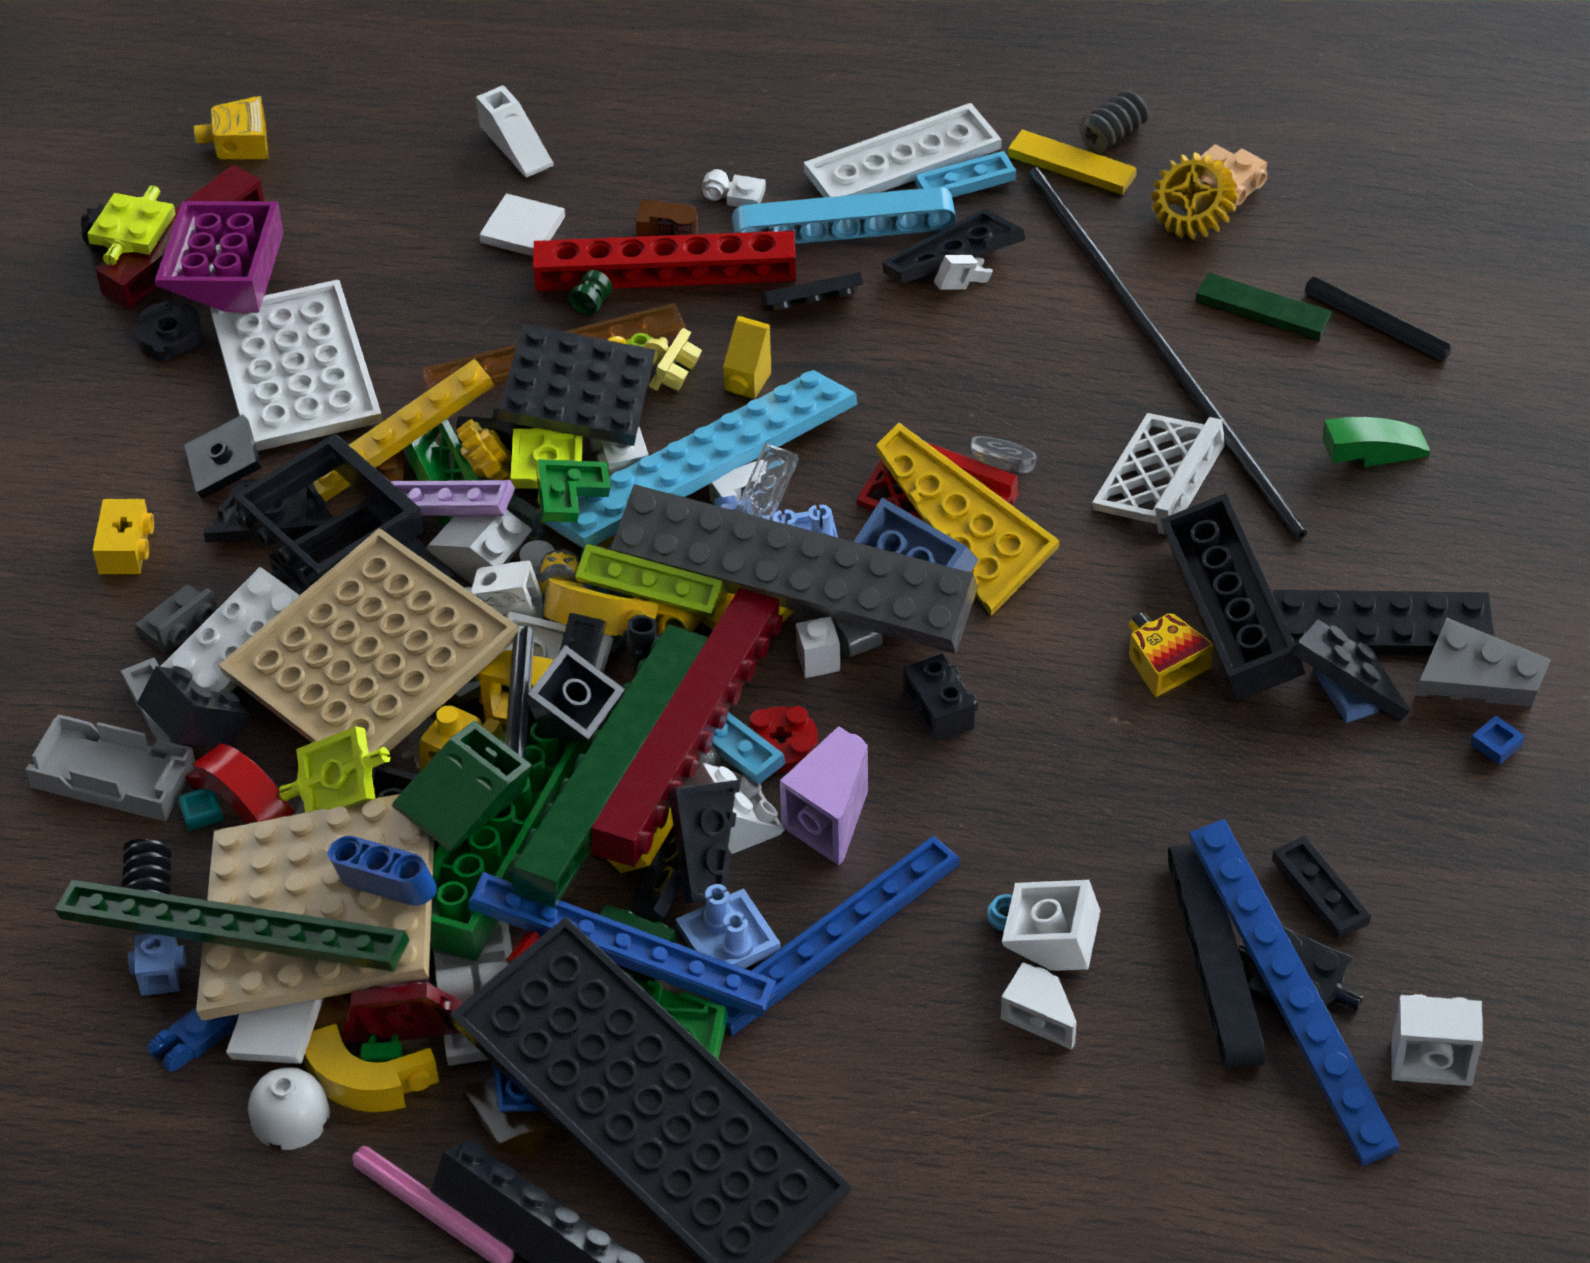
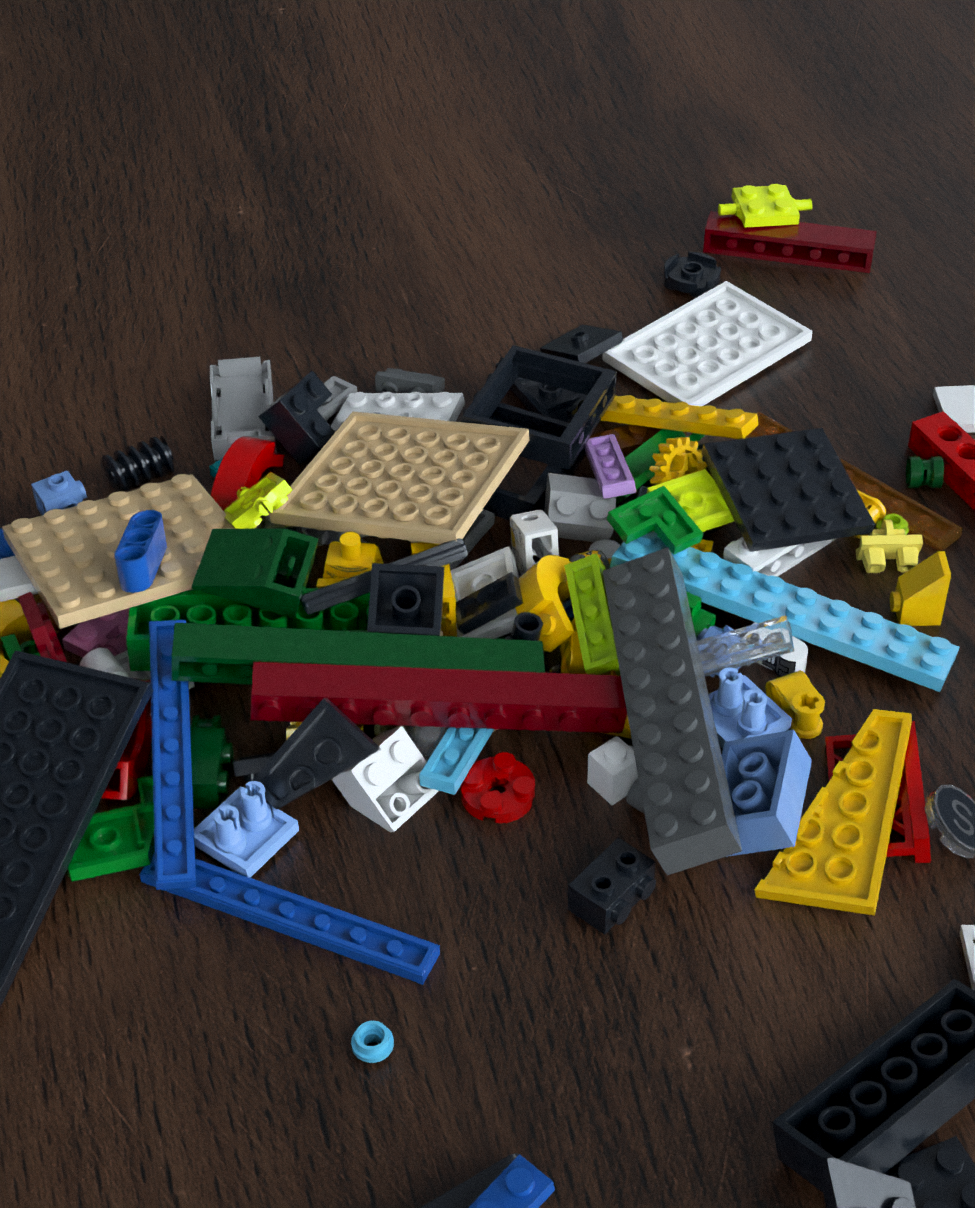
camera: 65 degrees right, 5 degrees down
(122, 536) = (466, 327): yellow brick -> none
(222, 253) = (773, 258): magenta slope -> none
(233, 925) = (73, 511): dark green plate -> none
(236, 130) = (925, 226): yellow torso -> none
(814, 490) = (800, 701): none -> yellow piece
(826, 794) = (430, 838): lavender slope -> none
(1039, 1005) = (262, 1110): white slope -> none
(1053, 923) = (363, 1083): white slope -> none
(1167, 651) = (791, 1057): yellow torso -> none

